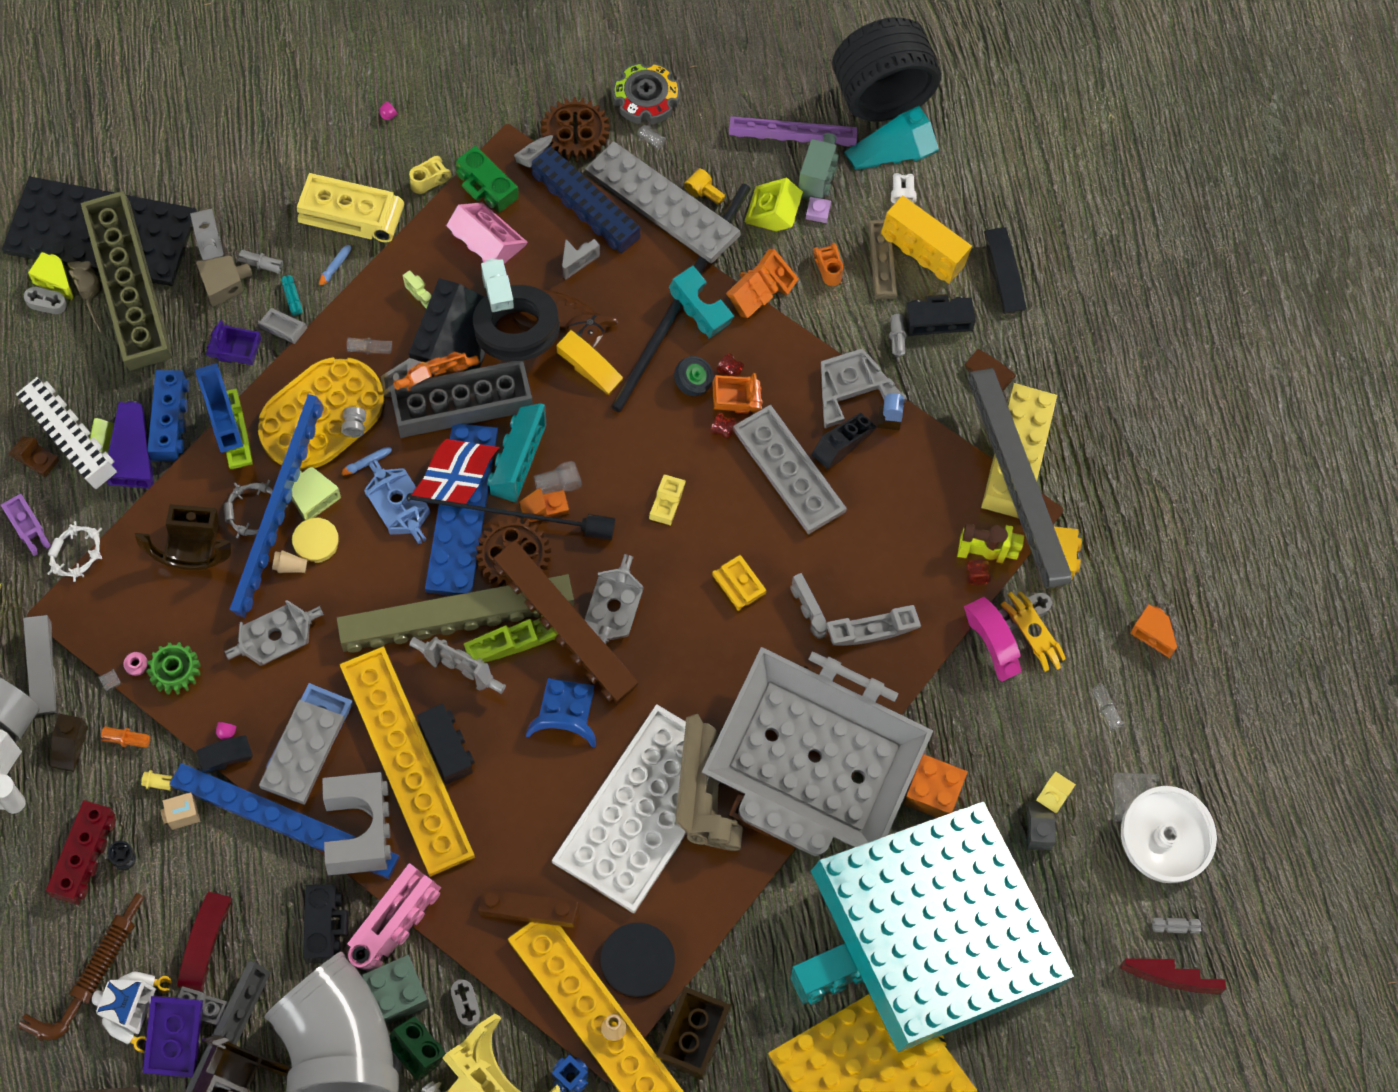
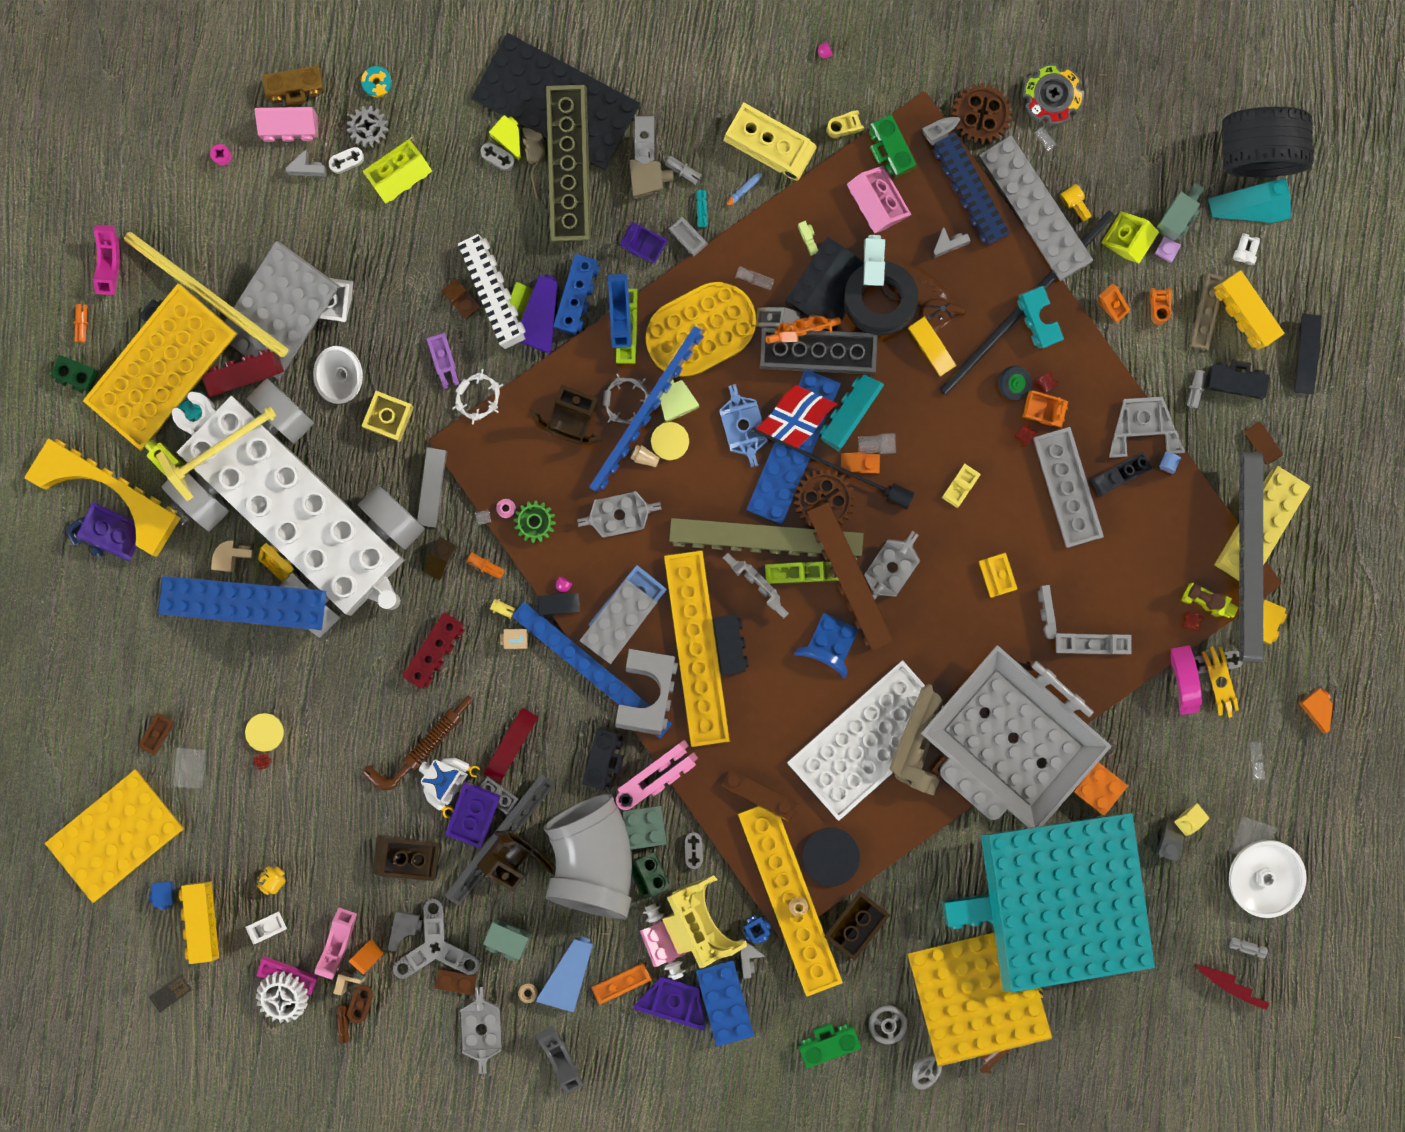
camera: 20 degrees right, 20 degrees up
(118, 851) = (463, 661): black wheel -> none
(353, 422) = (725, 350): light grey wheel -> none
(354, 467) = (727, 382): medium blue piece -> none
(752, 290) = (1087, 318): orange piece -> none
(790, 130) = (1168, 167): medium lavender plate -> none

